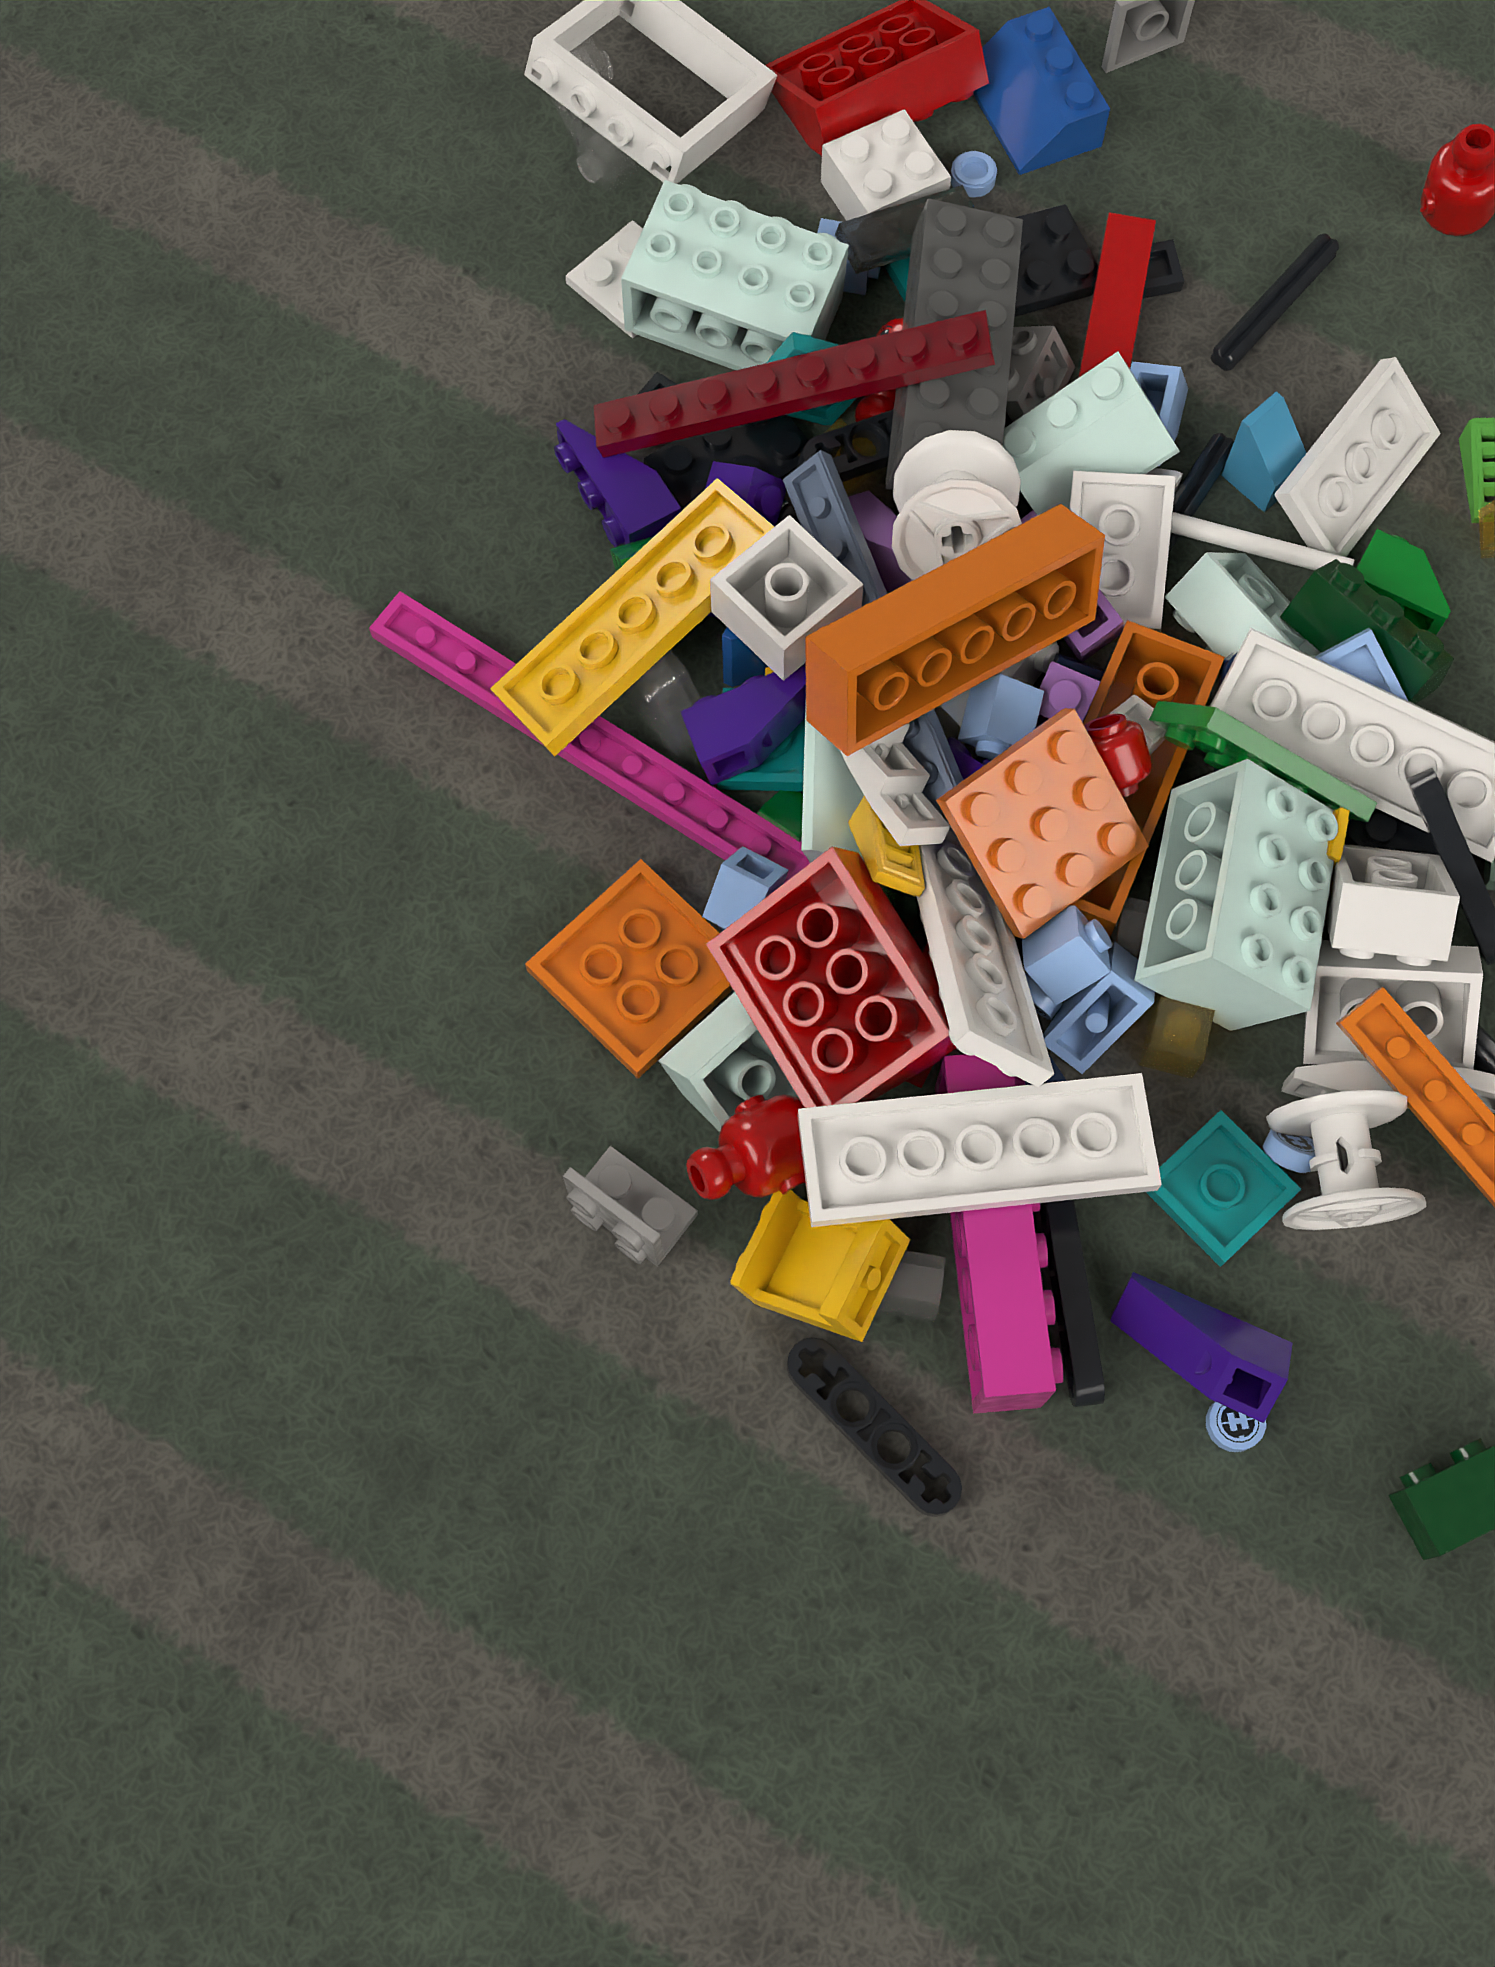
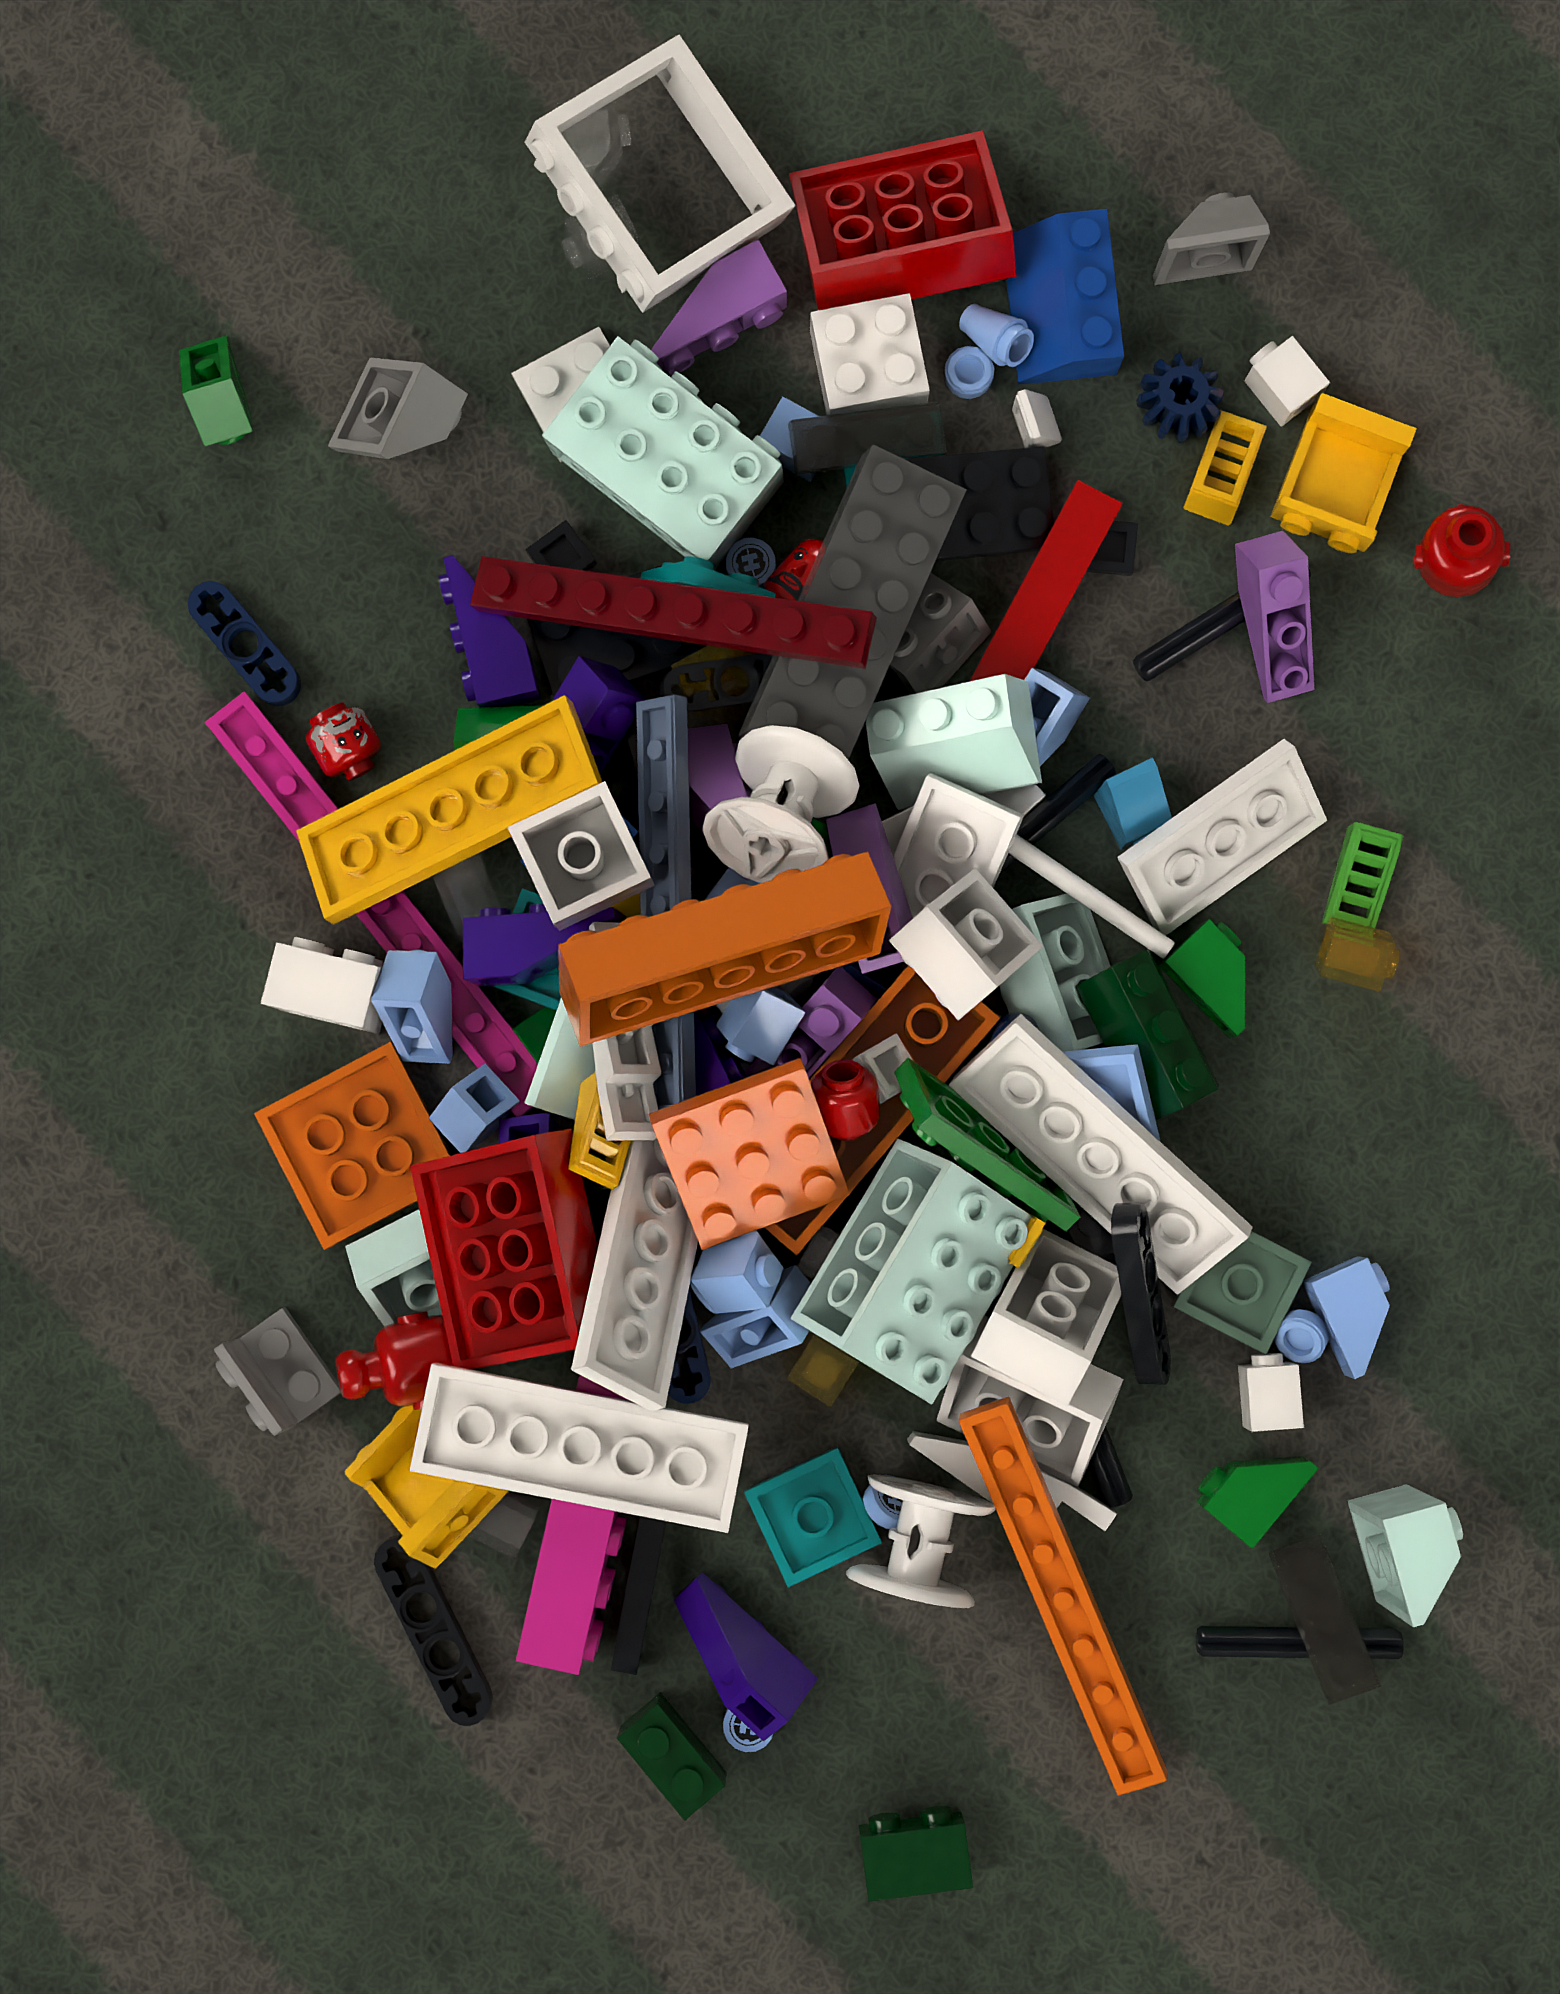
camera: 20 degrees right, 15 degrees up
(299, 356) = (214, 392): none -> green slope
(377, 539) = (232, 608): none -> dark blue beam
(472, 321) = (397, 410): none -> light grey slope
(508, 608) = (343, 741): none -> red head
(565, 817) = (324, 987): none -> white brick
(659, 810) = (416, 1005): none -> light blue slope
(749, 160) = (729, 298): none -> medium lavender slope
(989, 132) = (997, 334): none -> light blue cone
(1042, 190) = (1035, 419): none -> white slope
(1167, 140) = (1198, 406): none -> dark blue gear
(1170, 591) = (965, 943): none -> white brick
(1173, 1473) = (672, 1756): none -> dark green brick
(1227, 204) = (1216, 497): none -> yellow slope
(1252, 104) = (1285, 379): none -> white brick
(1326, 270) = (1277, 613): none -> medium lavender slope
(1330, 160) = (1341, 474): none -> yellow panel

